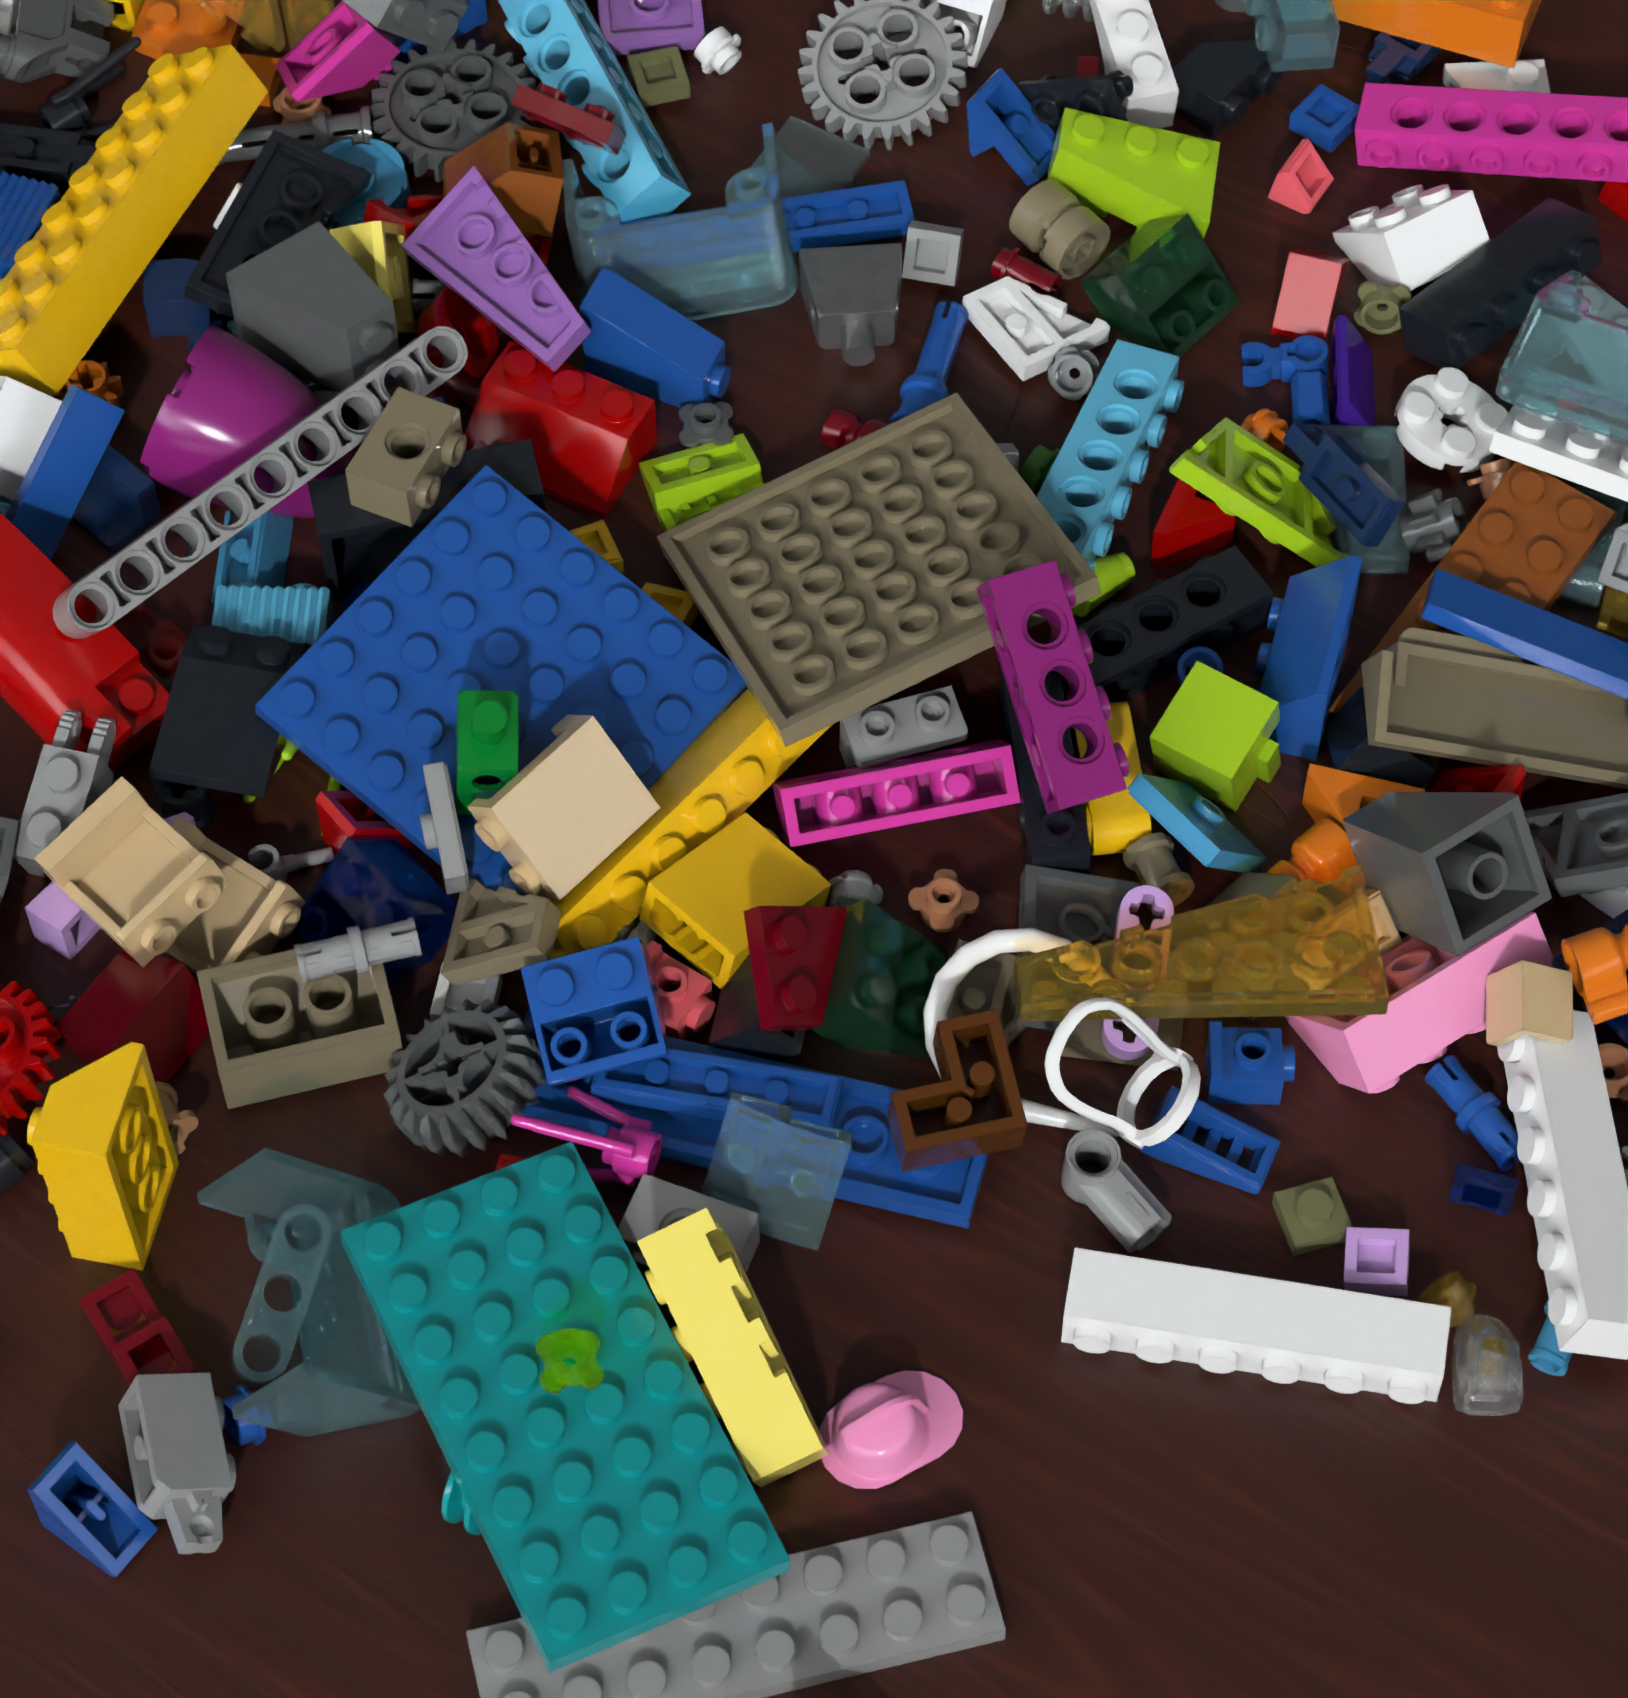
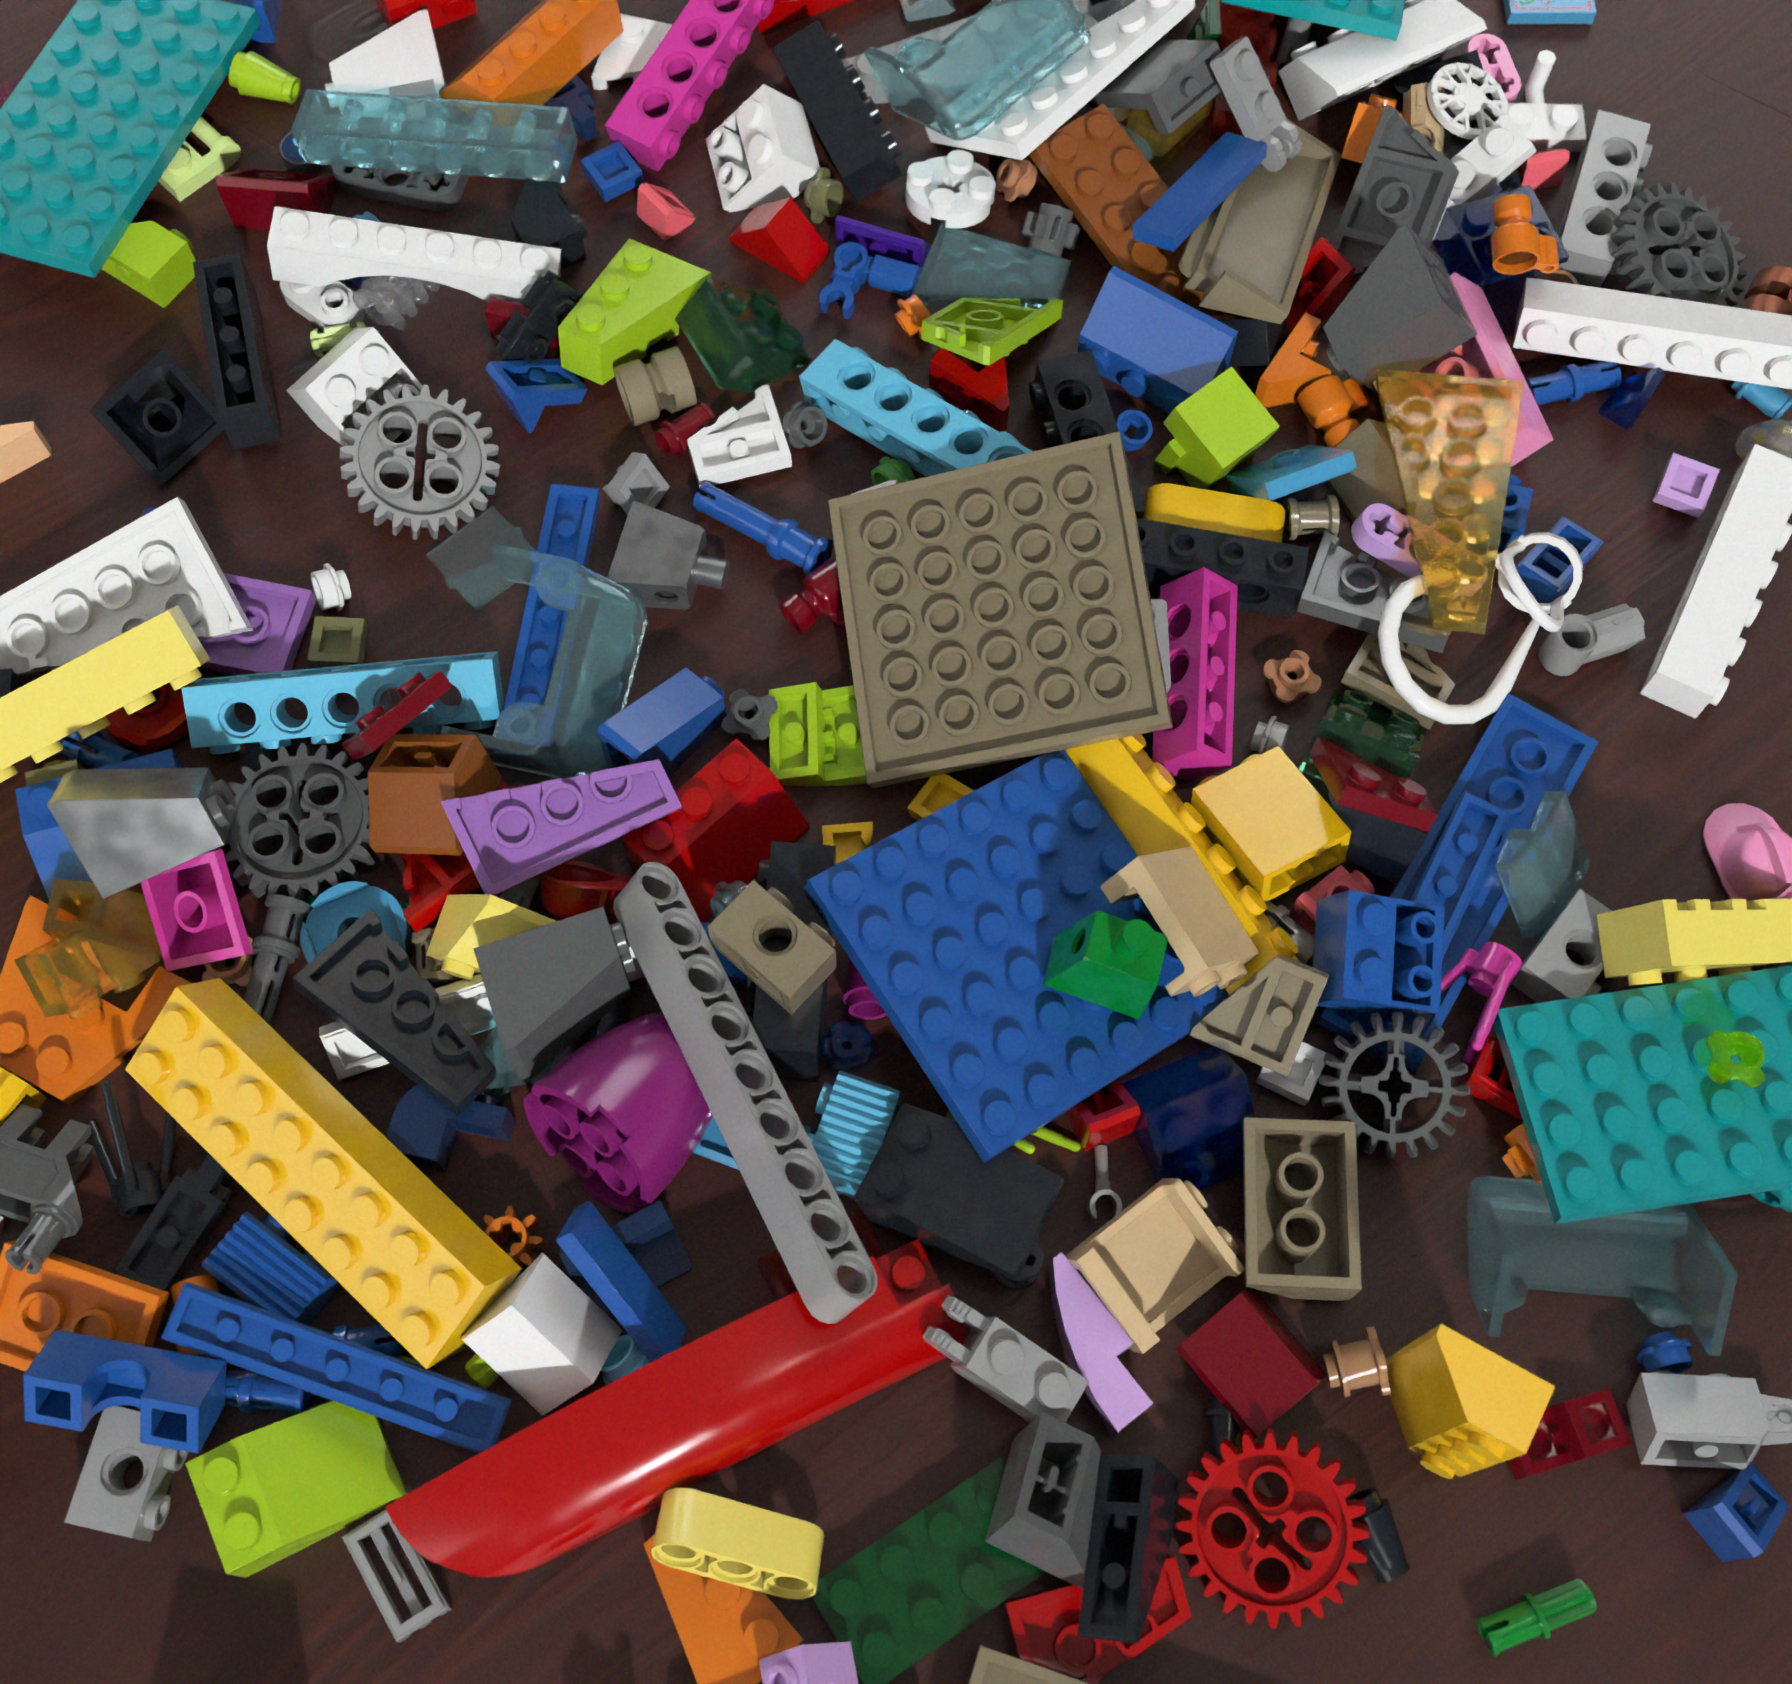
camera: 75 degrees left, 10 degrees up
(132, 872) = (1142, 1312): tan panel -> none
(289, 1264) = (1581, 1293): clear light blue beam -> none
(357, 950) = (1275, 1133): light grey pin -> none
(442, 828) = (1167, 1026): light grey plate -> none
(972, 1108) = (1536, 699): reddish brown brick -> none
(1042, 720) = (1203, 502): magenta brick -> none
(1311, 1216) = (1630, 516): olive plate -> none
(1344, 483) = (1000, 269): dark blue hinge -> none
(1453, 1292) = (1714, 451): clear yellow plate -> none
(1529, 1002) = (1527, 308): tan panel -> none

